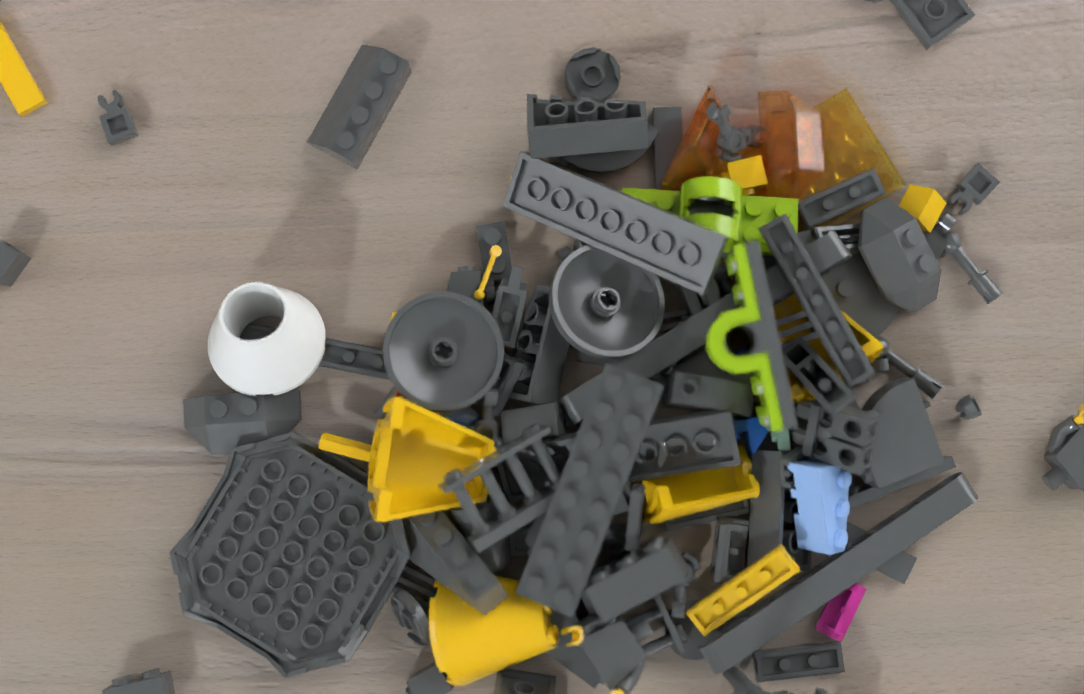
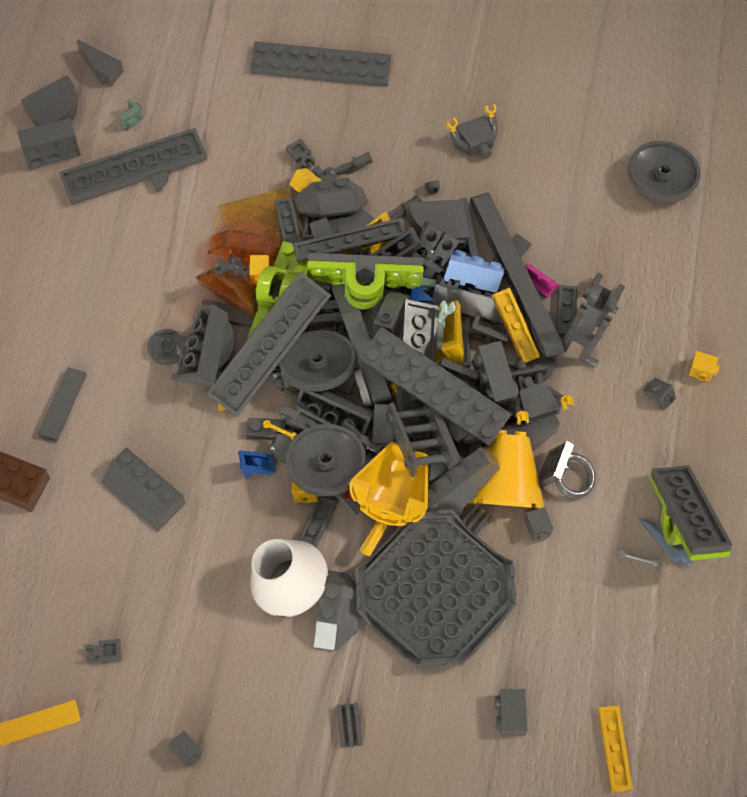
camera: 75 degrees left, 20 degrees down
(60, 481) = (347, 707): none -> dark grey tile
(410, 614) = (493, 521): dark grey tile -> none
(430, 251) = (256, 463): none -> blue slope
(581, 376) = (363, 388): none -> light grey tile
(732, 476) = (445, 310): none -> light aqua piece

